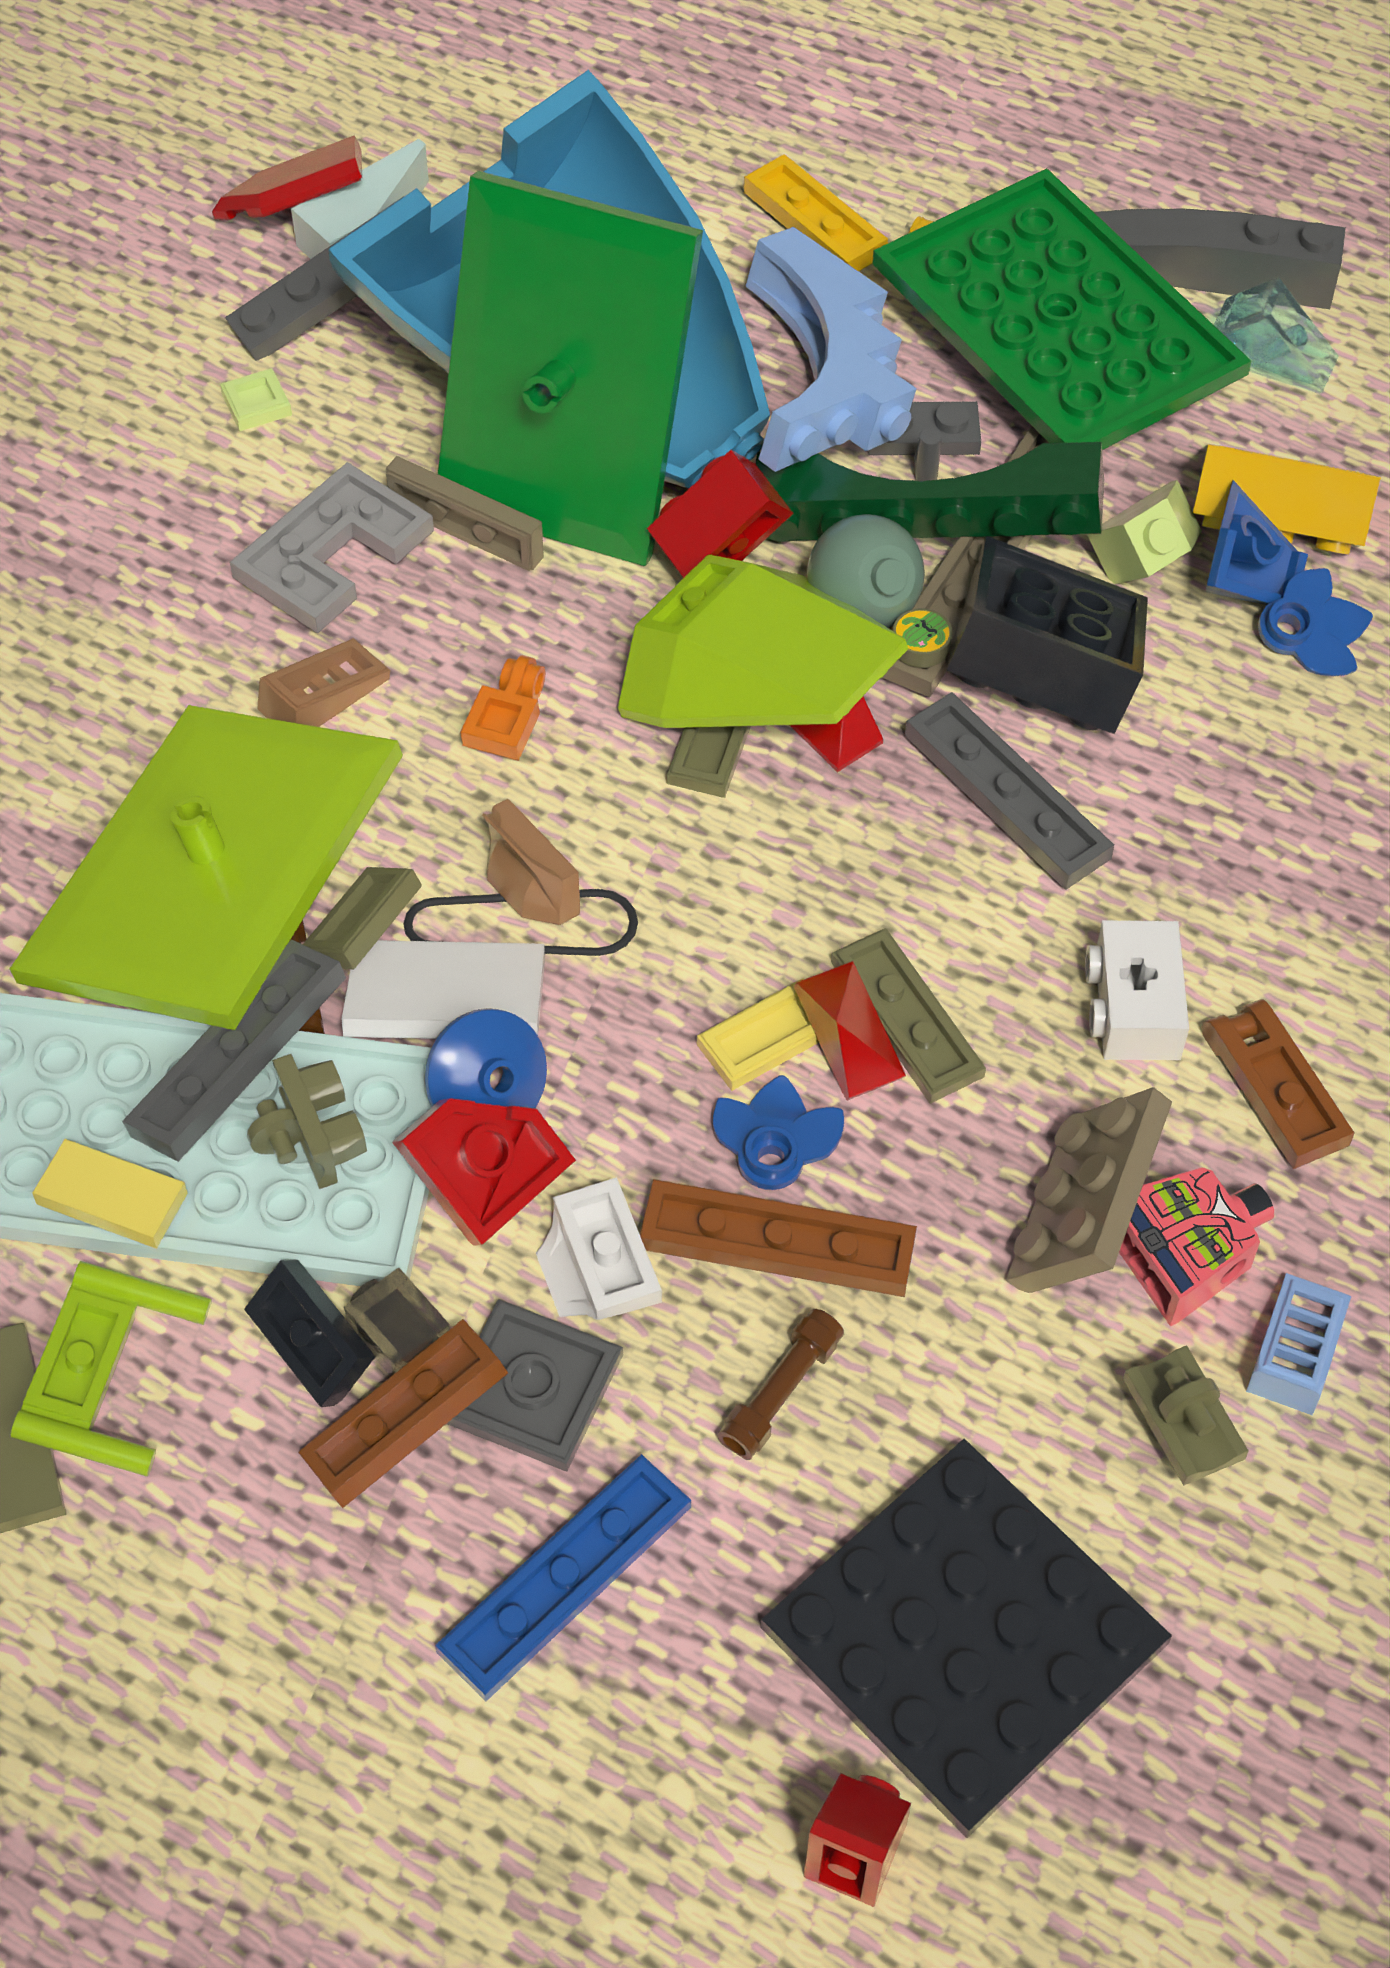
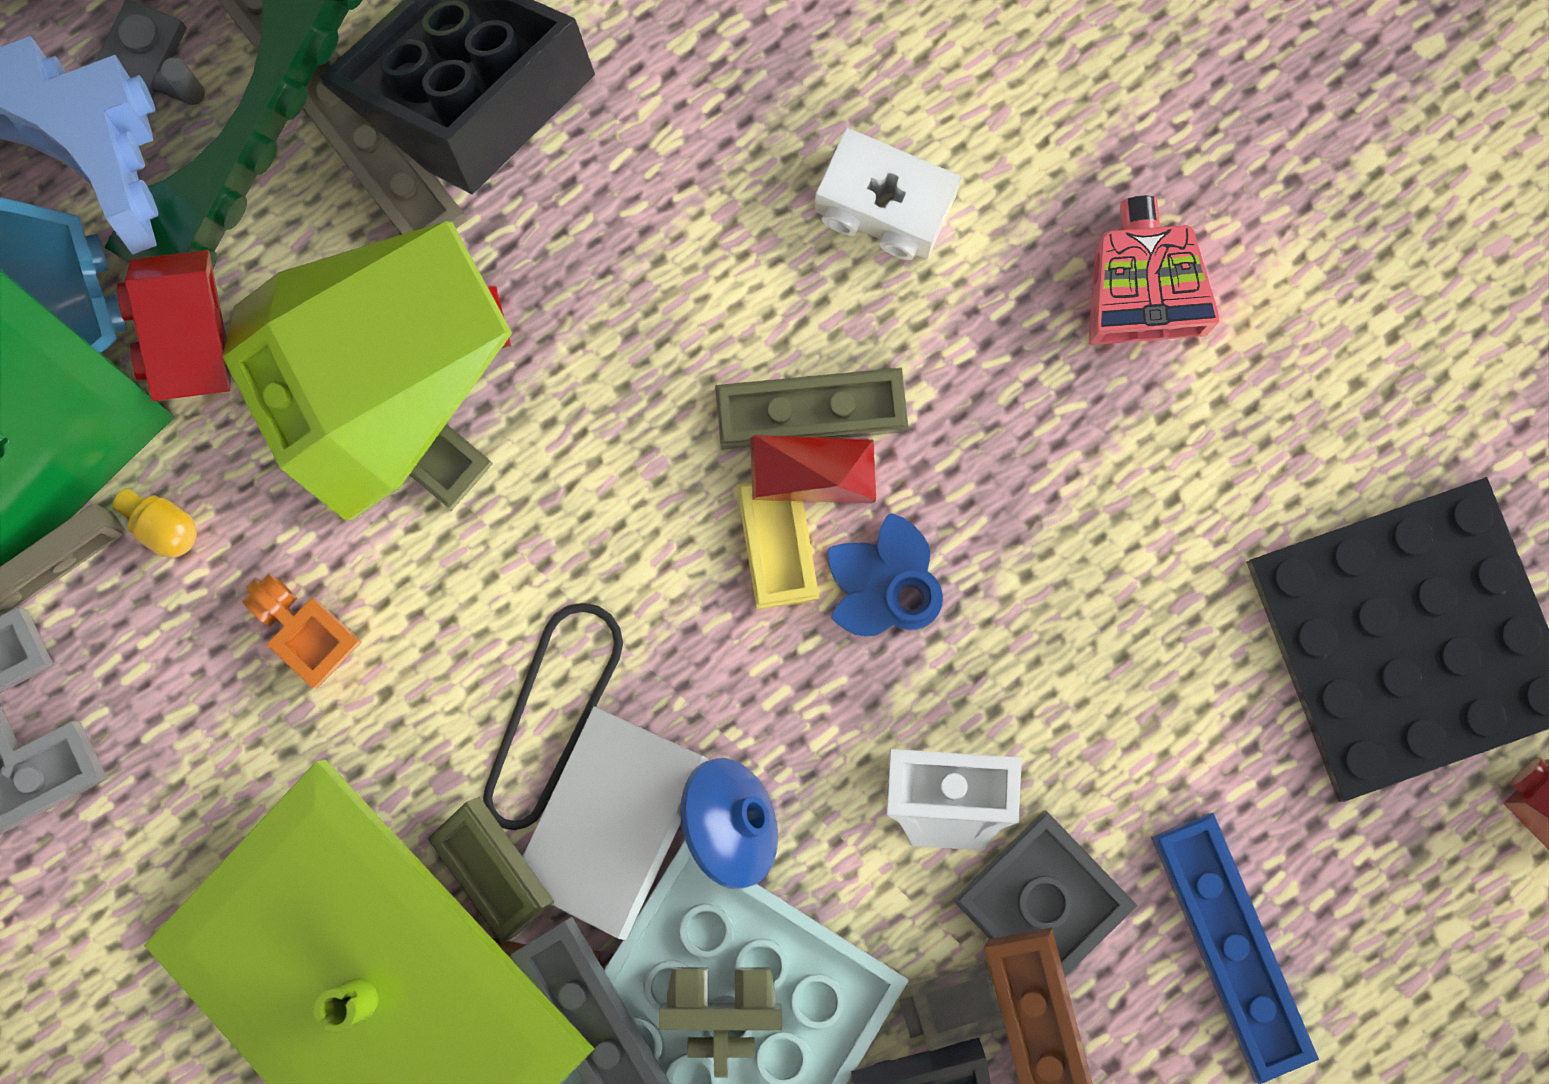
camera: 65 degrees left, 25 degrees up
(283, 692) = (215, 837): medium nougat slope -> none
(483, 1161) = (819, 861): red plate -> none
(529, 868) = (507, 689): medium nougat slope -> none
(548, 583) = (157, 523): none -> yellow cylinder
(749, 1426) = (1165, 736): reddish brown bar -> none
(778, 1238) = (996, 629): dark orange plate -> none
(869, 566) = (314, 211): sand green brick -> none
(926, 635) = (413, 197): tile -> none
(1009, 790) = (612, 201): dark grey plate -> none
(1089, 1192) = (1085, 342): dark tan plate -> none
(1186, 1415) = (1314, 369): olive hips -> none
(1279, 1083) = (1024, 125): dark orange plate -> none
(1286, 1384) = (1255, 253): light blue slope -> none

